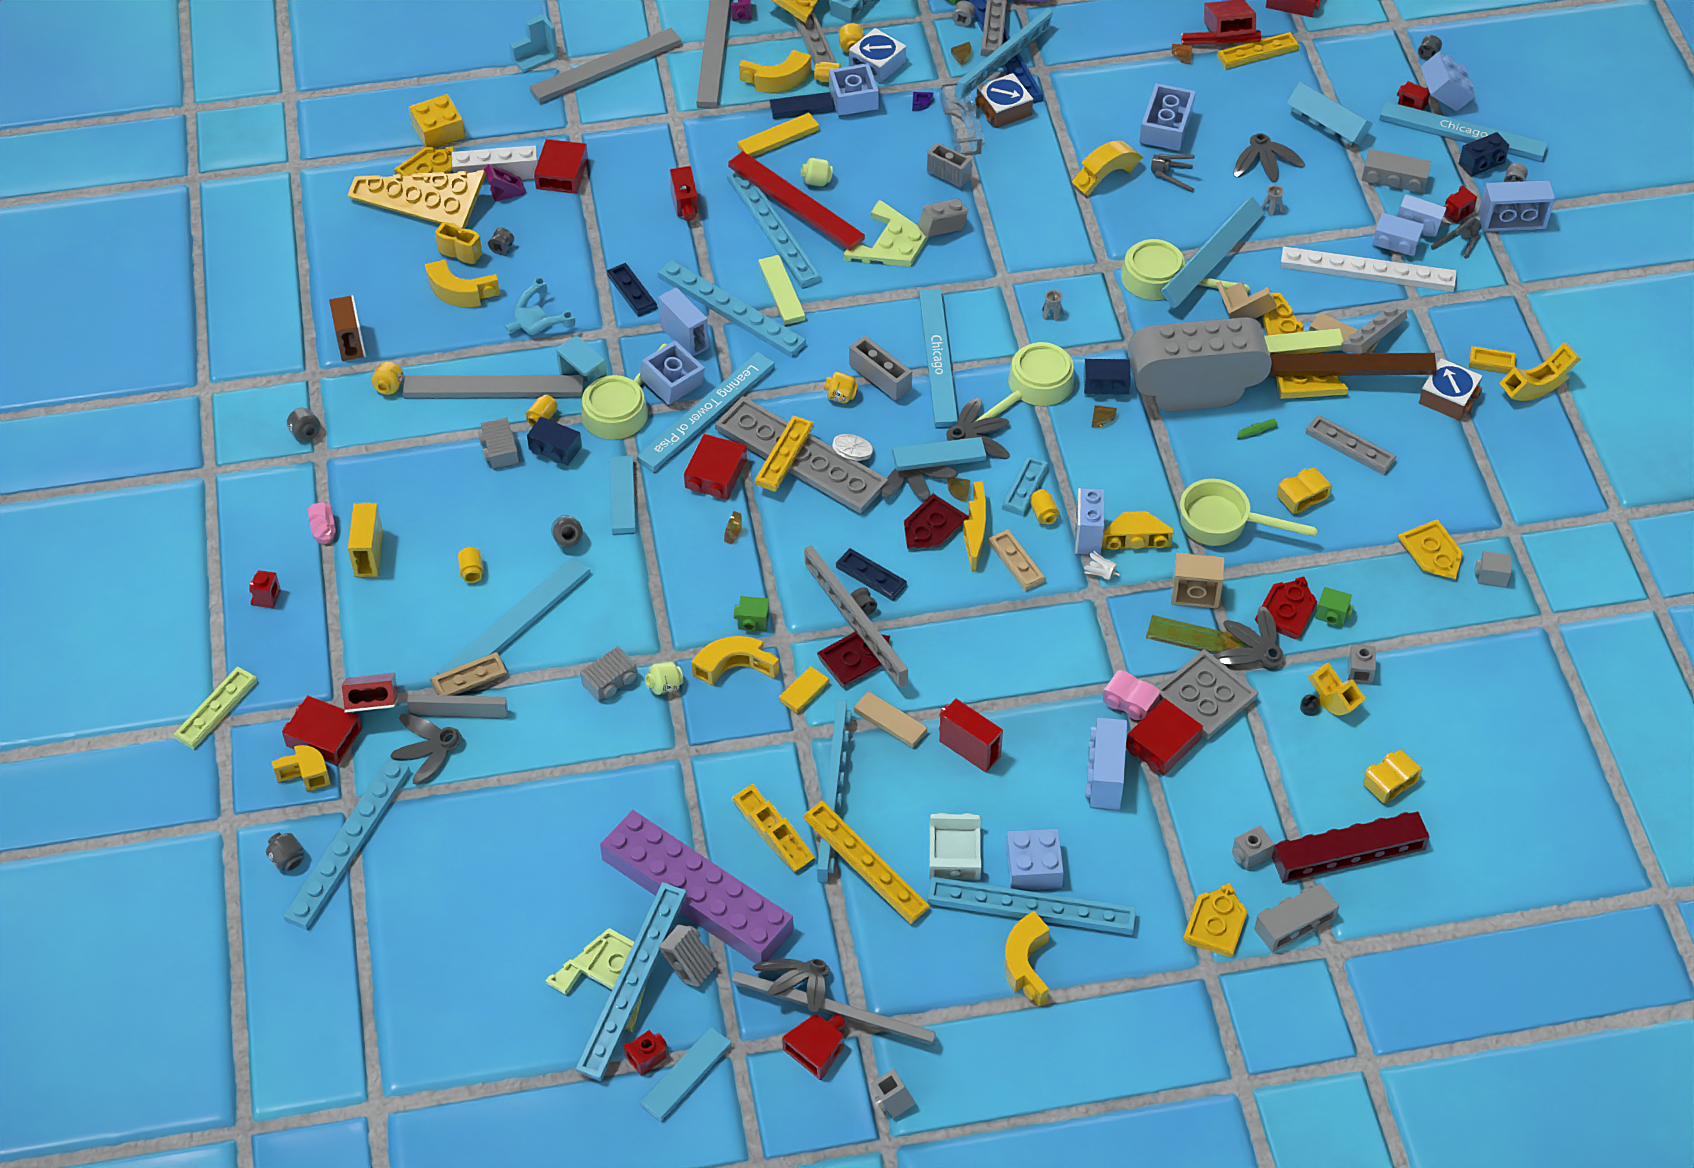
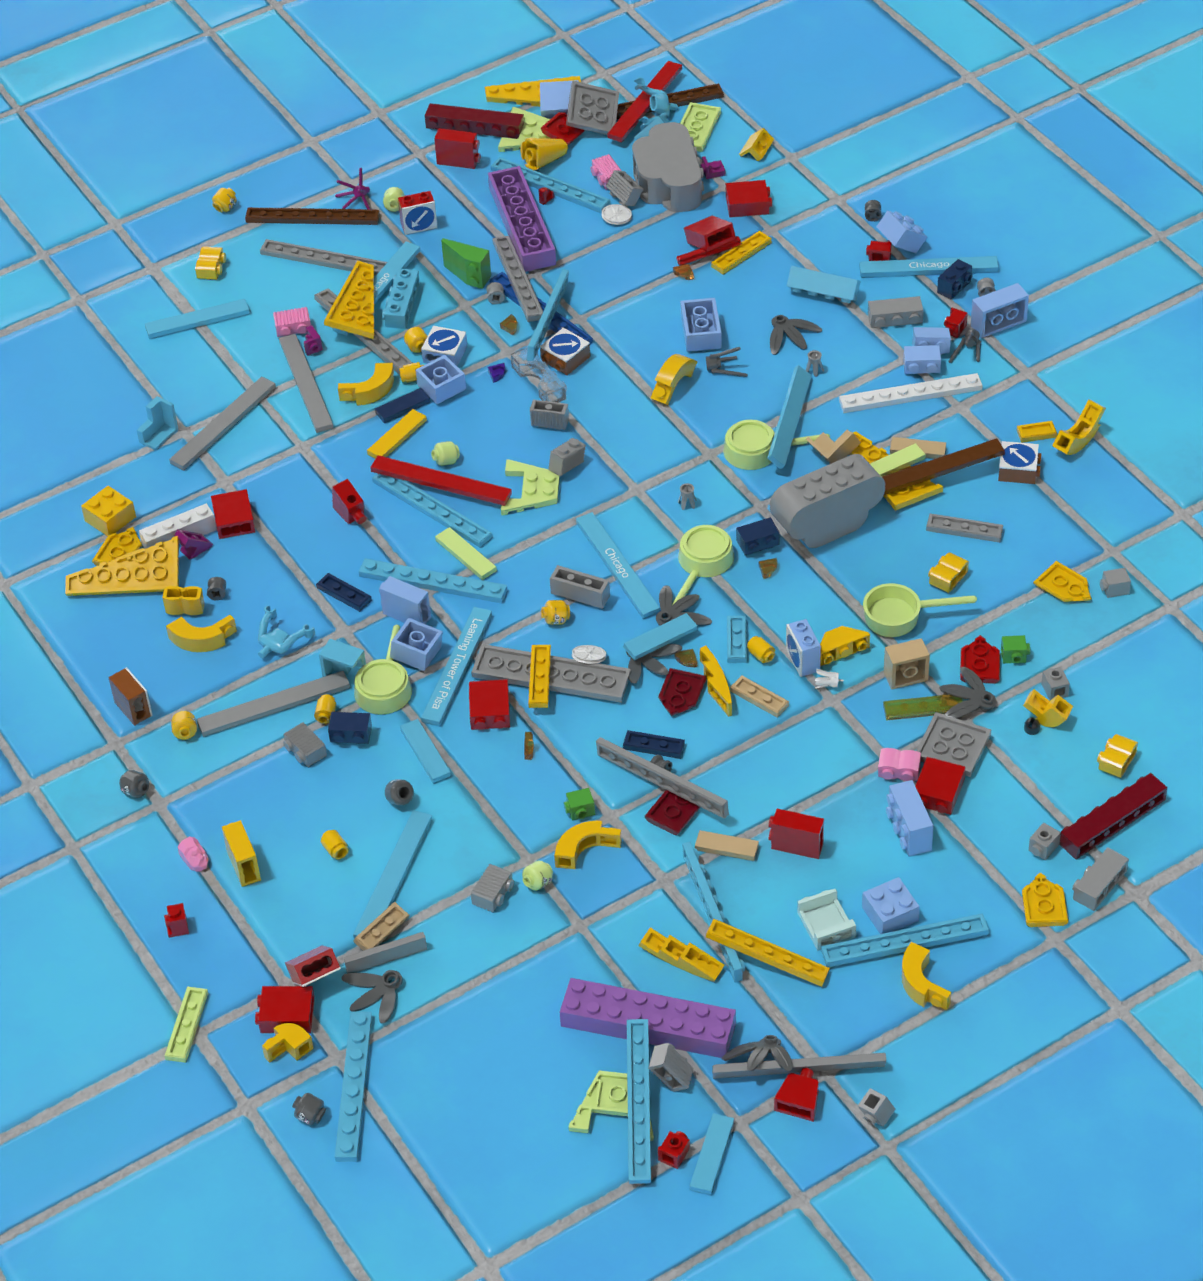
camera: 20 degrees left, 5 degrees down
(804, 689) = (649, 847): yellow tile -> none
(1257, 428) = (889, 538): bright green piece -> none
(1374, 330) = (941, 436): light grey plate -> none

